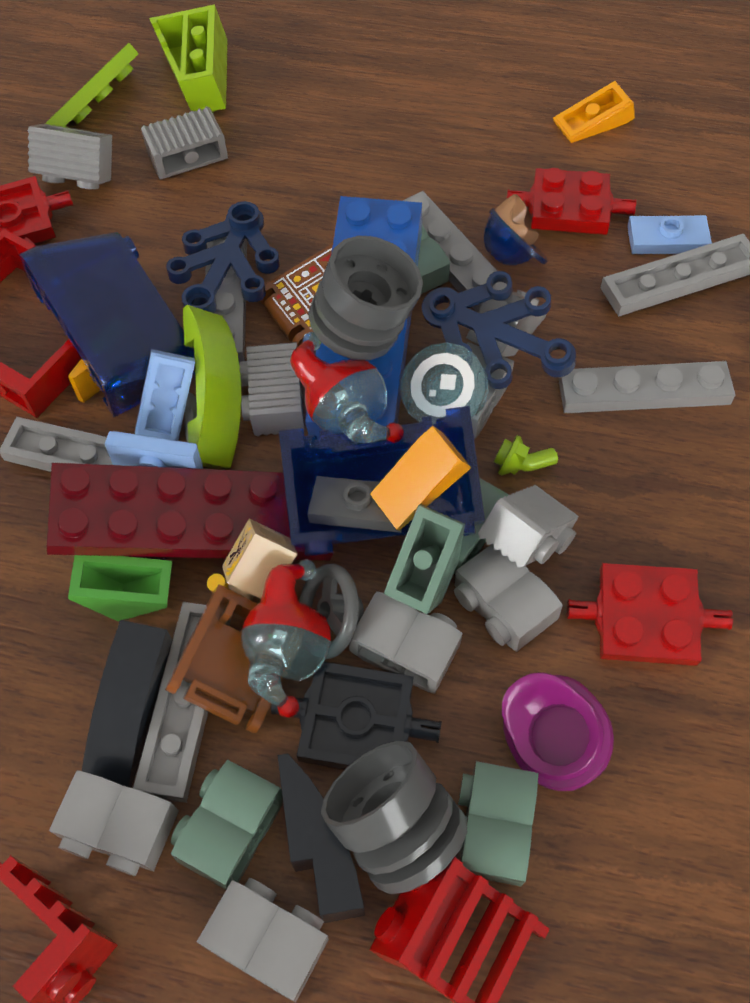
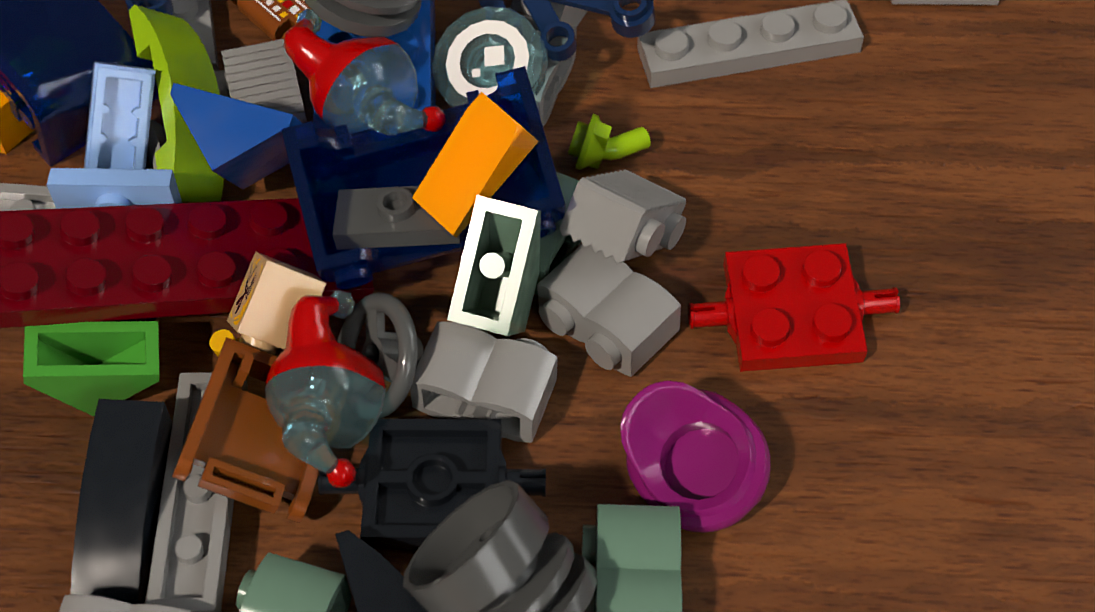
camera: 10 degrees left, 5 degrees down
(243, 426) = (235, 136): none -> blue slope

